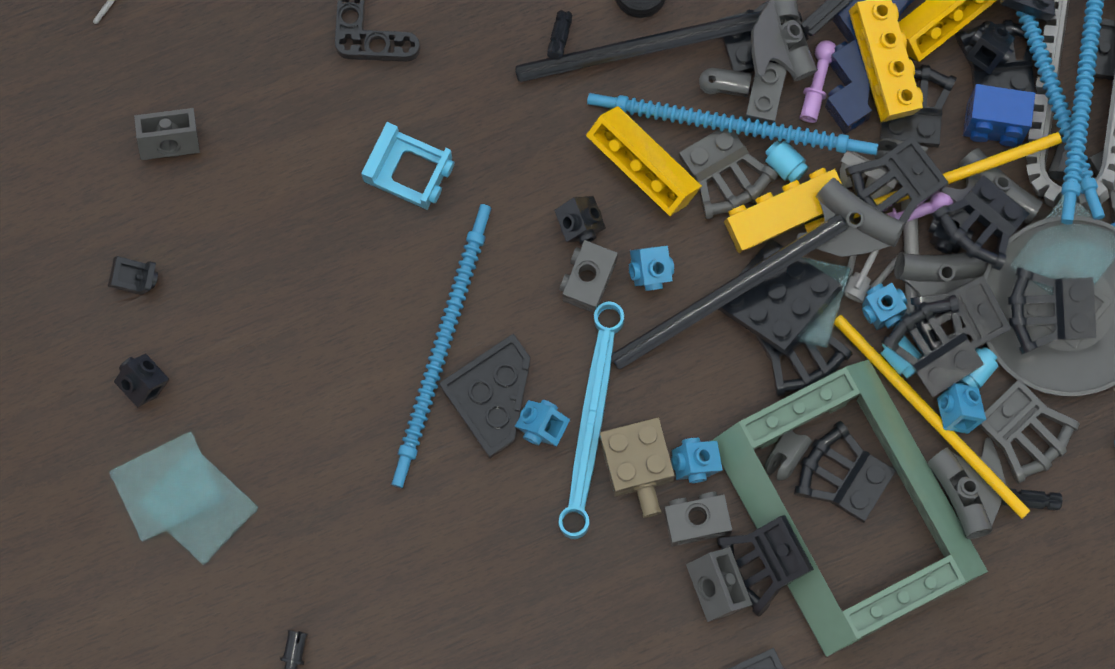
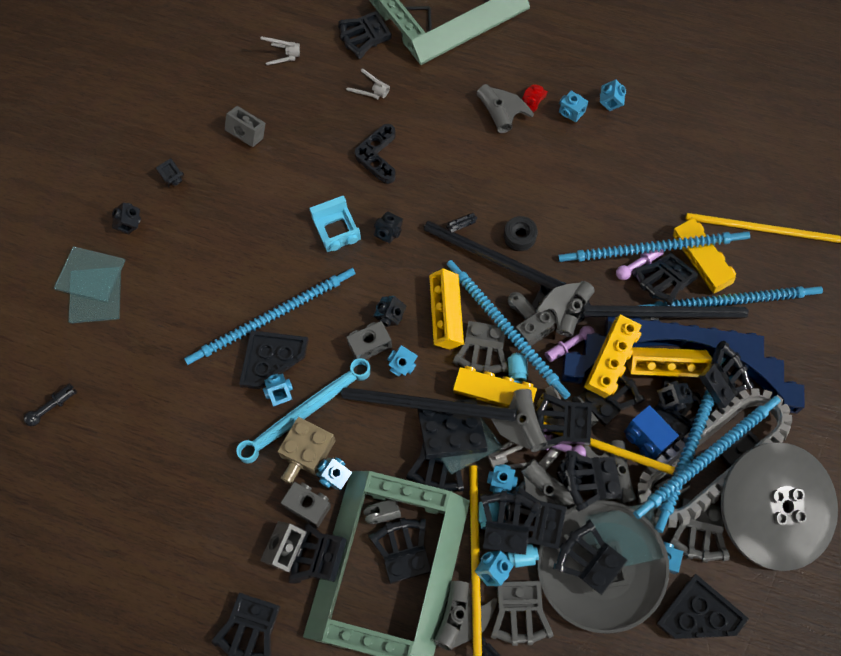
camera: 40 degrees right, 10 degrees down
(478, 116) = (388, 227): none -> black brick

